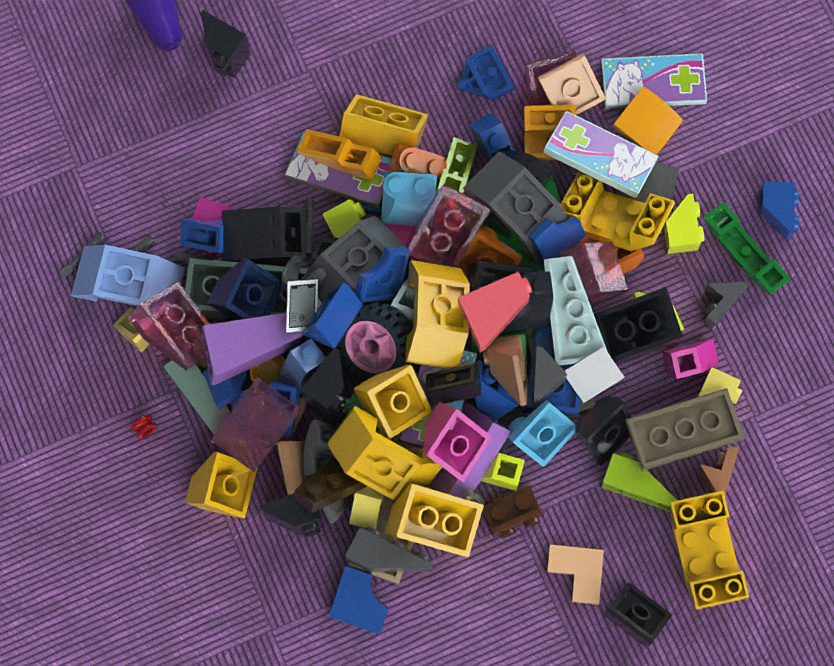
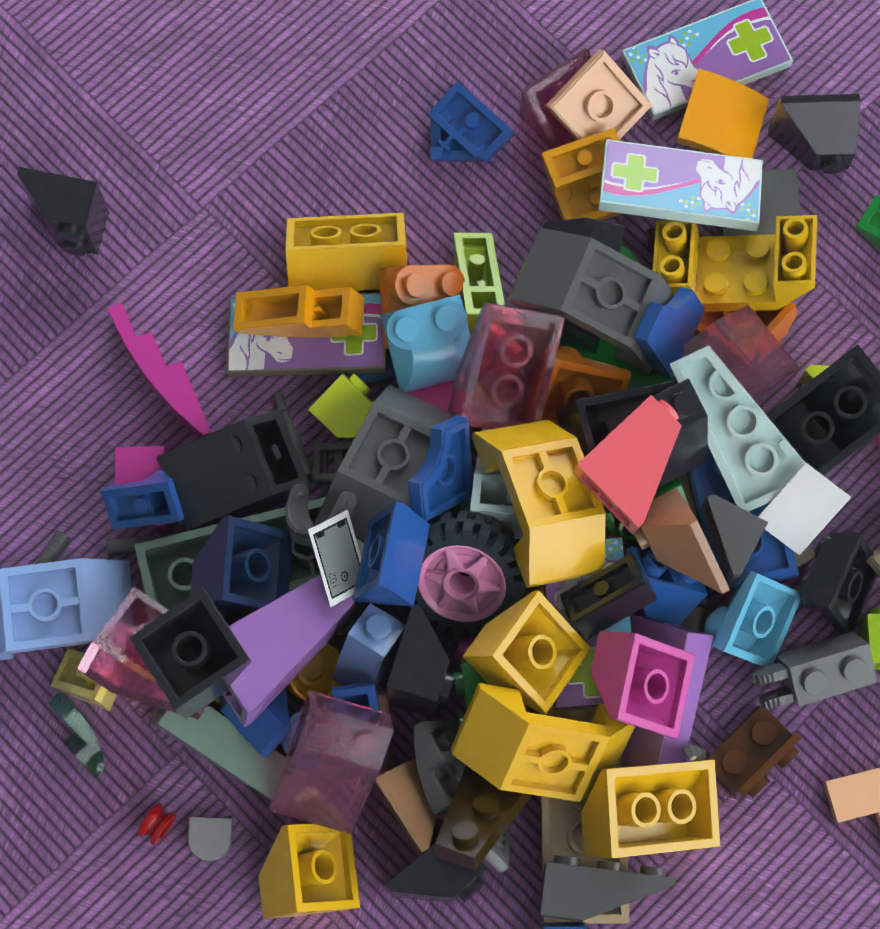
camera: 25 degrees left, 0 degrees up
(119, 364) = (83, 741): none -> slope
(172, 446) = (210, 837): none -> light grey tile
(193, 329) = (191, 653): none -> black slope
(247, 169) = (167, 382): none -> dark pink slope
(366, 508) = (542, 828): light yellow slope -> none
(490, 136) = (509, 216): blue slope -> none
(504, 472) = (724, 697): neon yellow slope -> none
(569, 477) = (818, 671): none -> dark grey hinge
(682, 228) = (838, 254): neon yellow slope -> none
(702, 149) = (818, 129): none -> black slope

